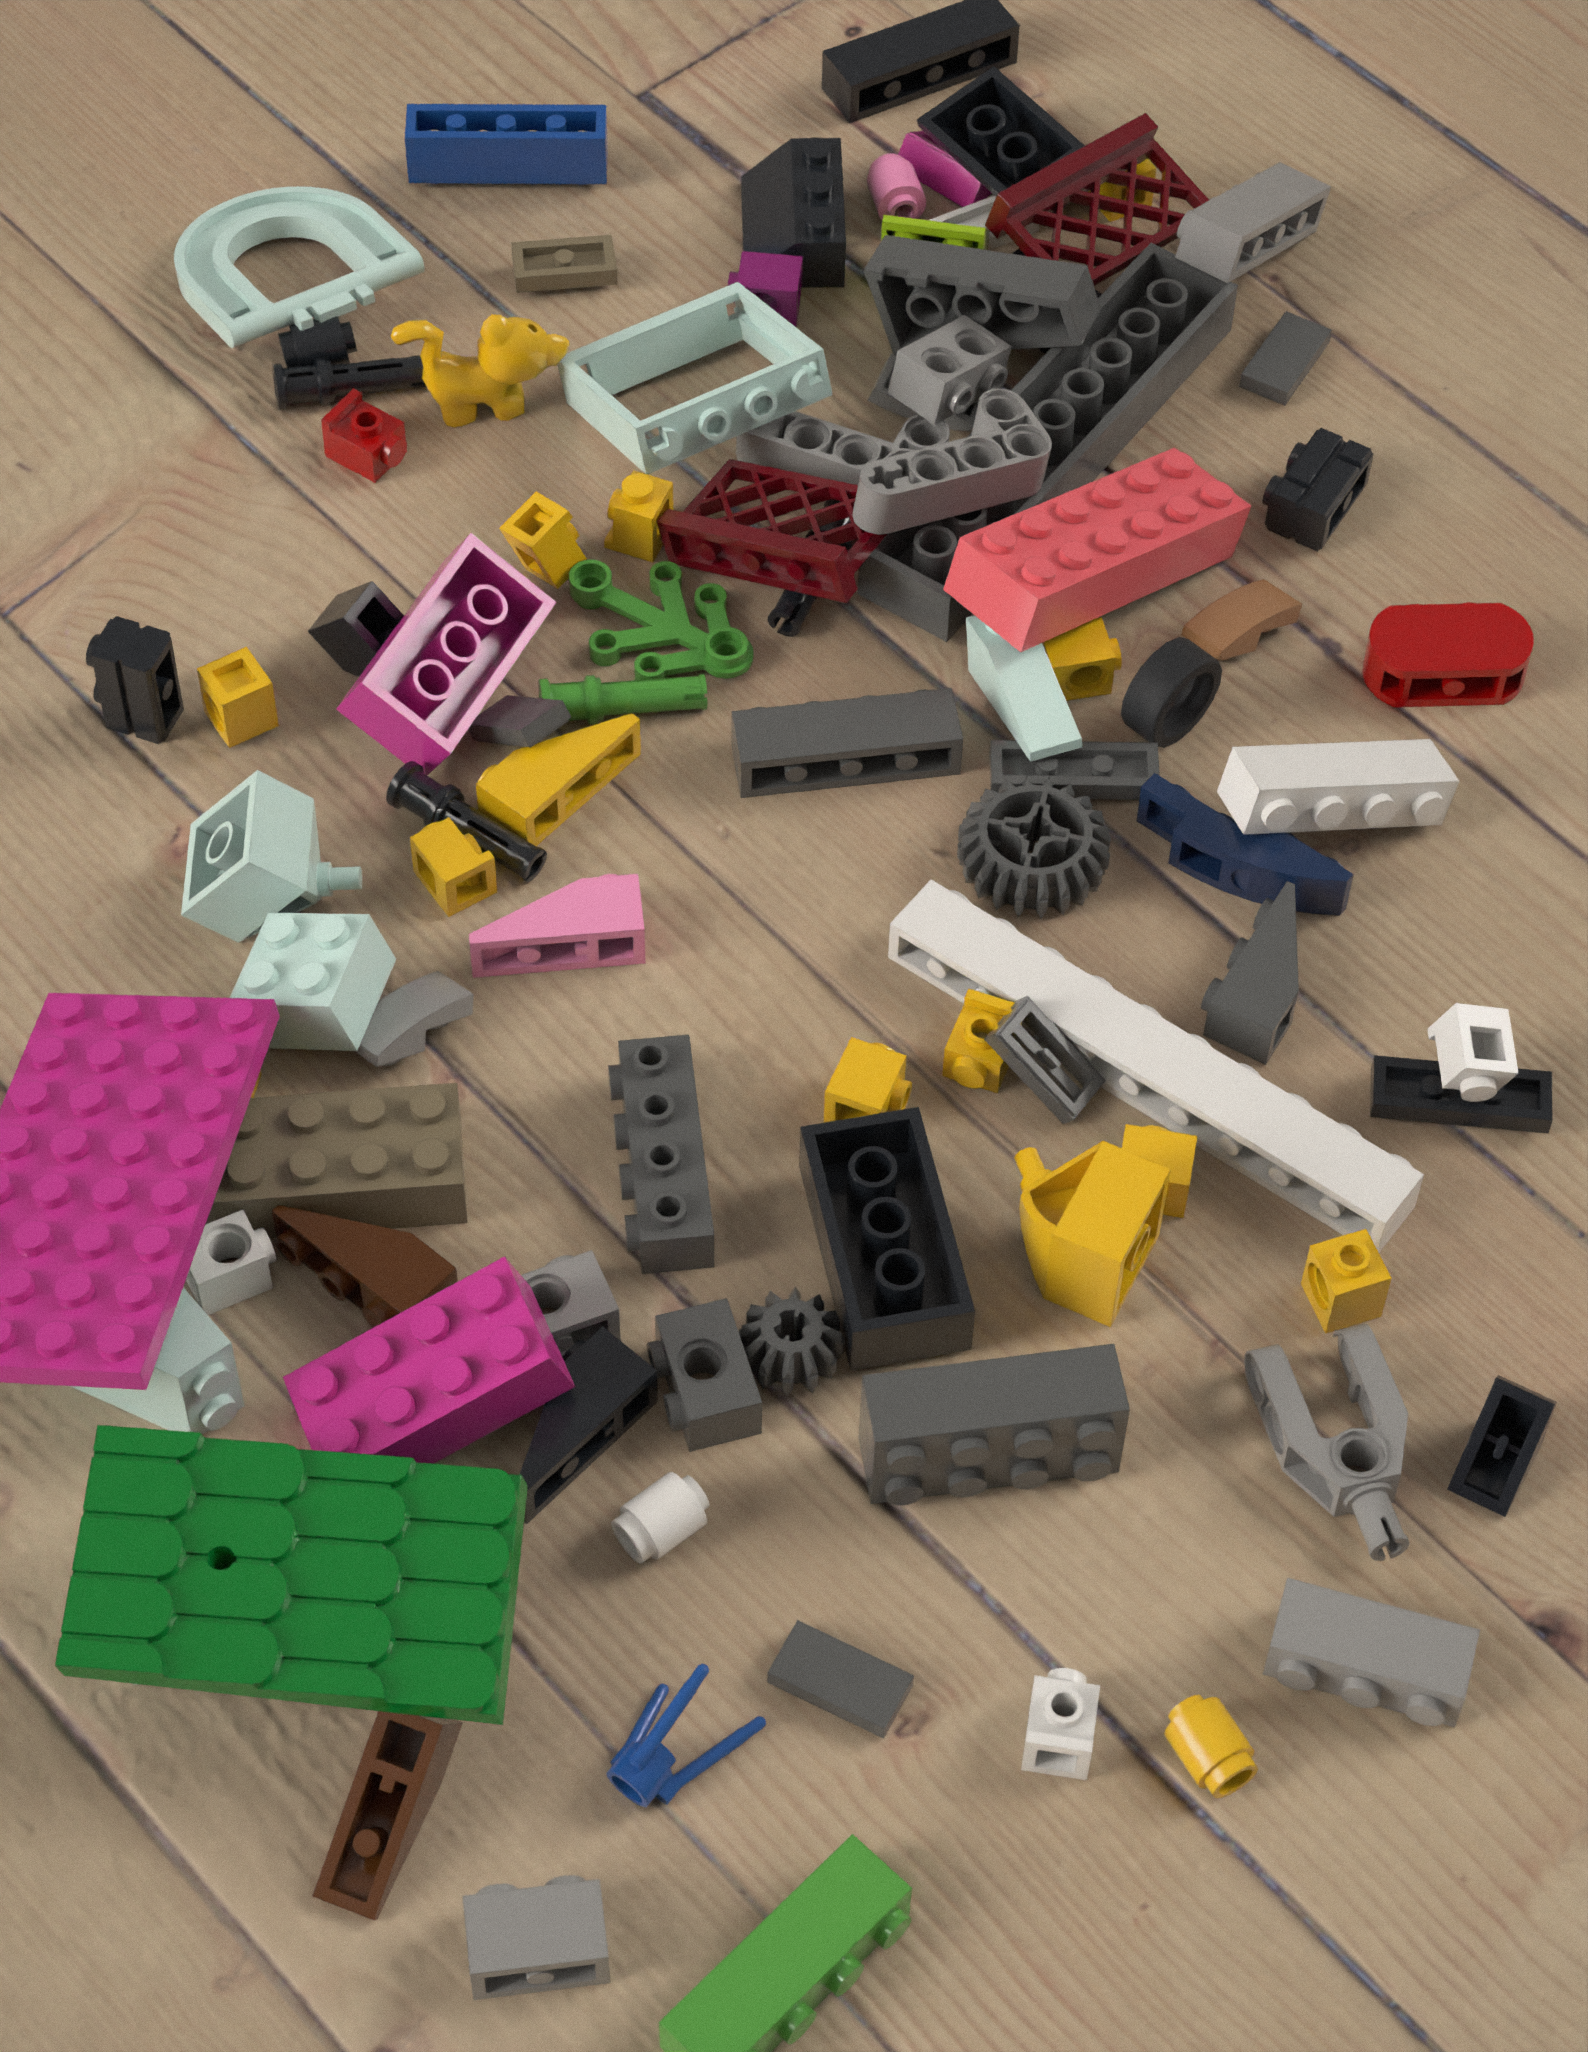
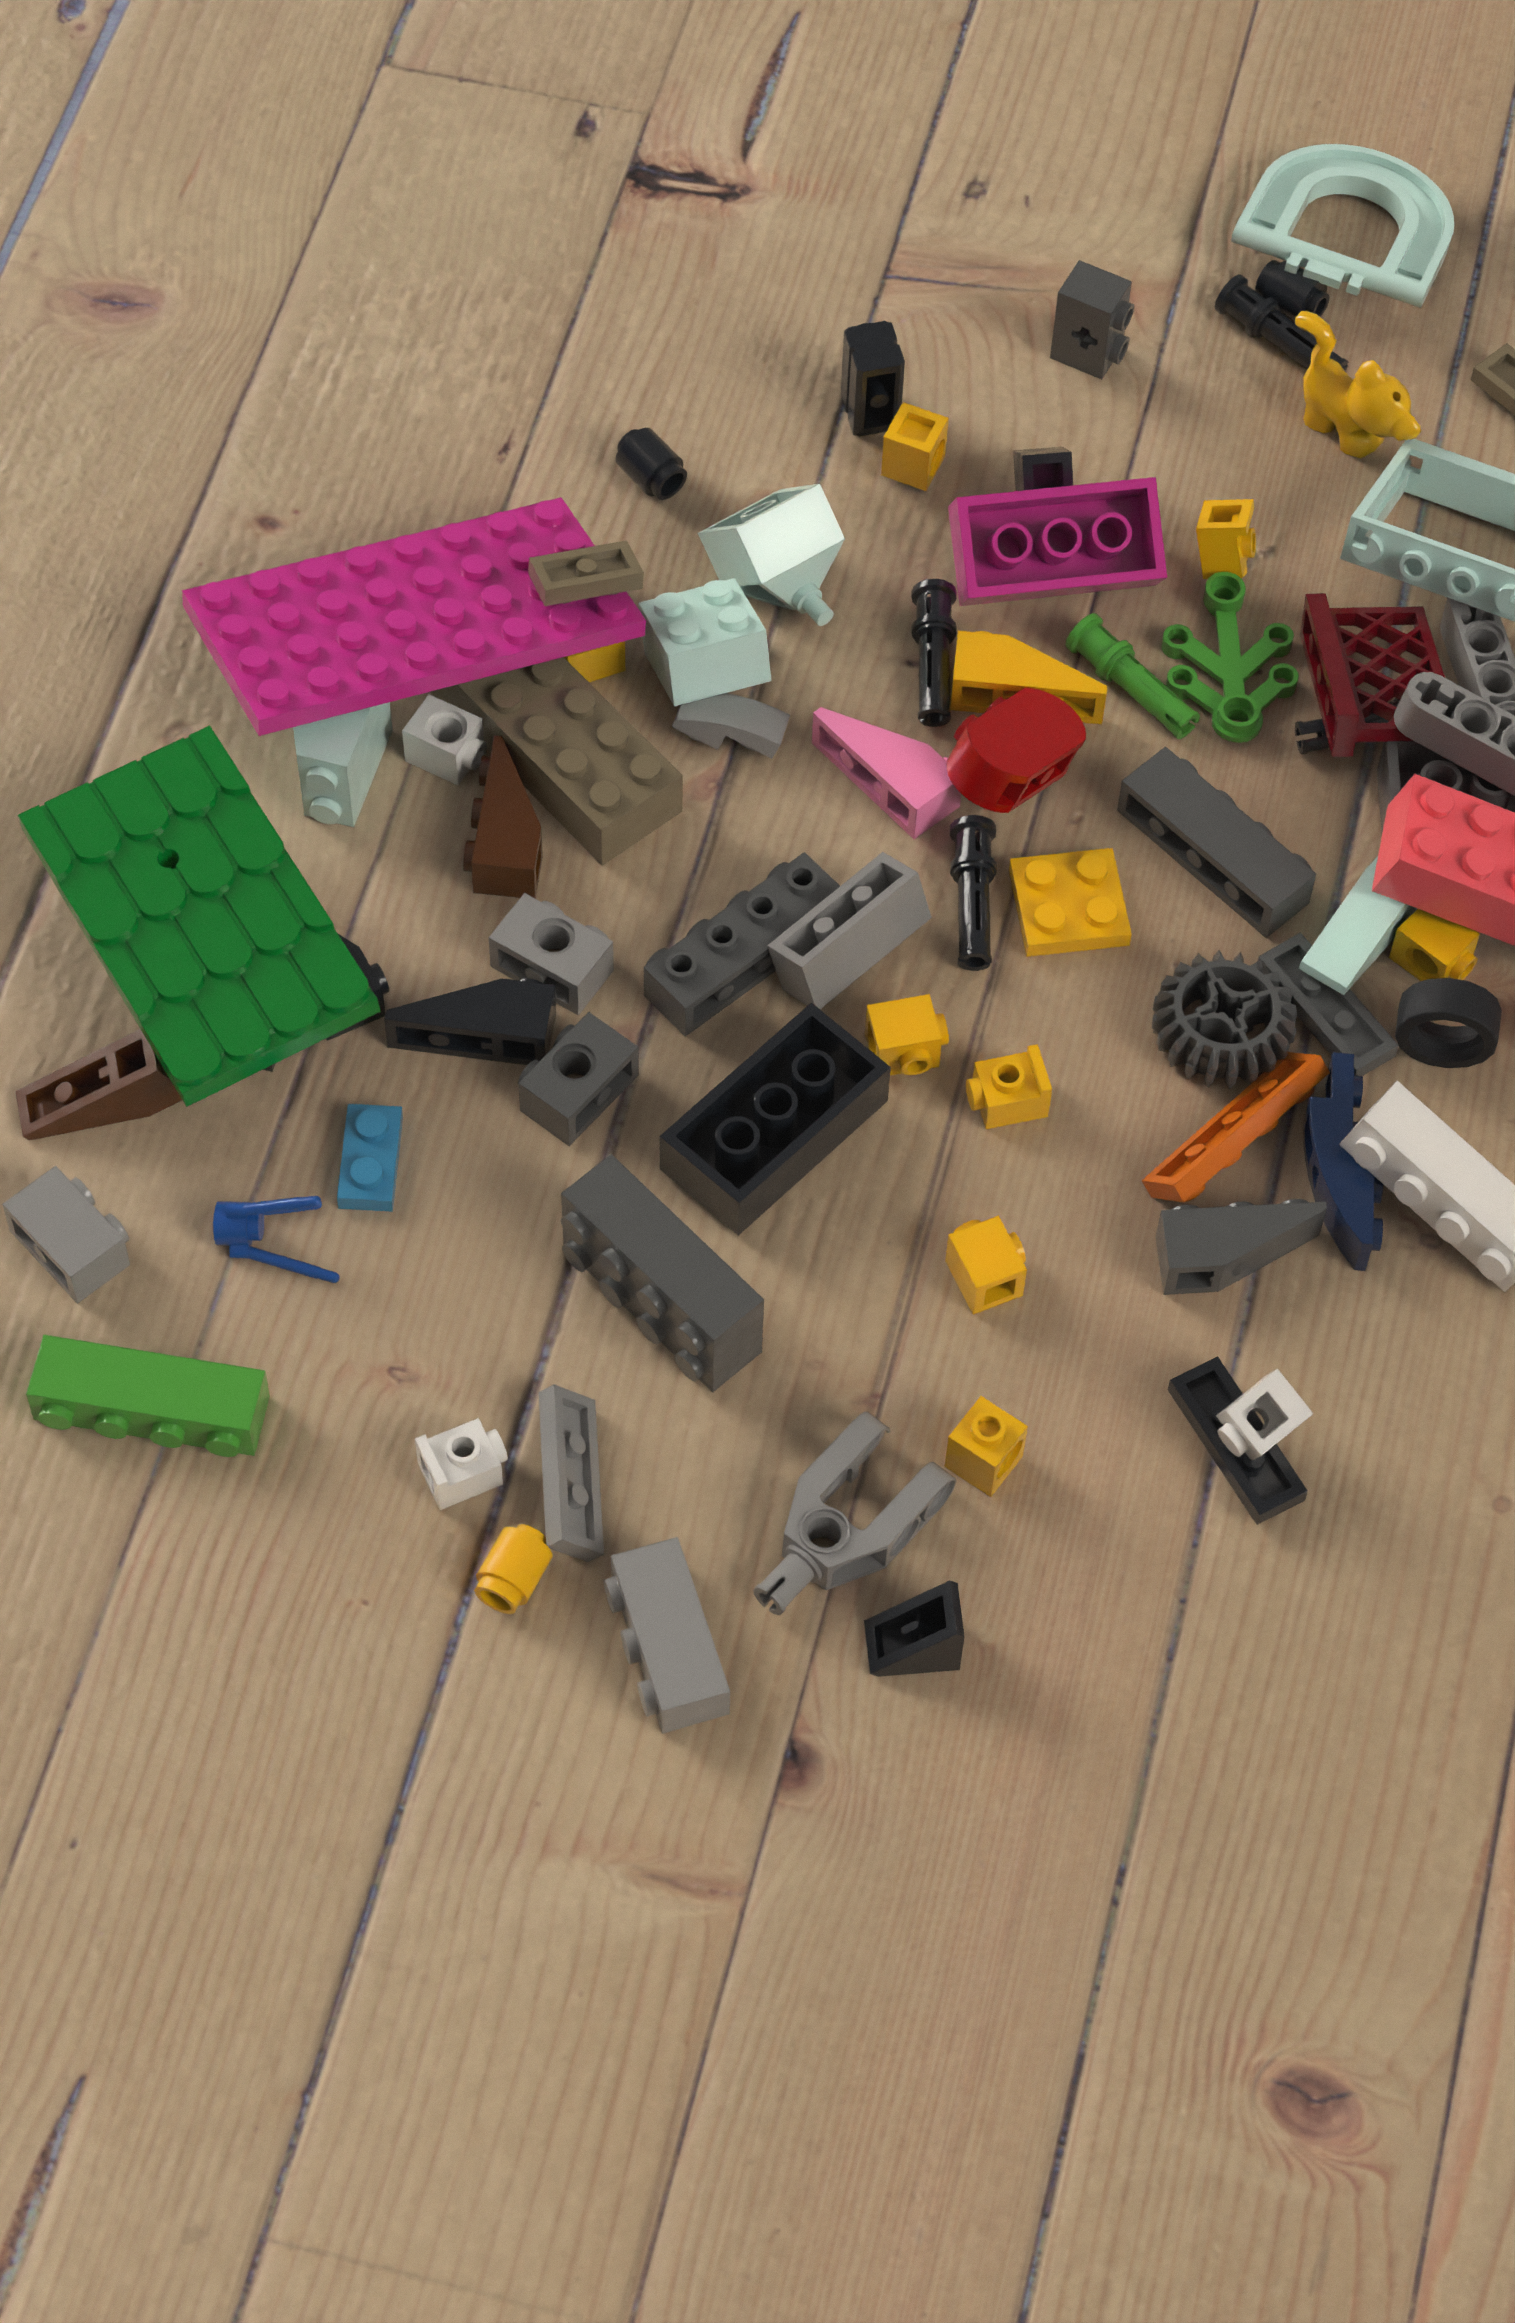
camera: 55 degrees right, 5 degrees up
(55, 909) = (651, 463): none -> black brick
(192, 1008) = (585, 573): none -> dark tan plate
(228, 488) = (1092, 320): none -> dark grey brick
(363, 437) = (1231, 372): red brick -> none
(434, 1373) = (429, 907): dark pink brick -> none
(452, 866) = (885, 666): yellow brick -> none
(519, 721) = (1043, 624): dark grey tile -> none
(635, 515) = (1311, 571): yellow brick -> none
(642, 818) = (1014, 749): none -> red brick
(648, 1609) = (370, 1157): none -> dark azure plate
(661, 1517) = (441, 1118): white brick -> none
(728, 1060) = (849, 931): none -> light grey brick
(729, 935) = (973, 871): none -> black pin
(813, 1335) = (642, 1111): dark grey gear -> none
(814, 887) = (1069, 902): none -> yellow plate
(840, 1679) = (401, 1306): dark grey tile -> none
(1041, 1068) = (1024, 1088): dark grey tile -> none
(1090, 1225) = (888, 1246): yellow piece -> none
(1138, 1636) = (570, 1473): none -> light grey plate
(1151, 907) = (1236, 1126): none -> orange plate
(1163, 1069) = (1085, 1218): white brick -> none

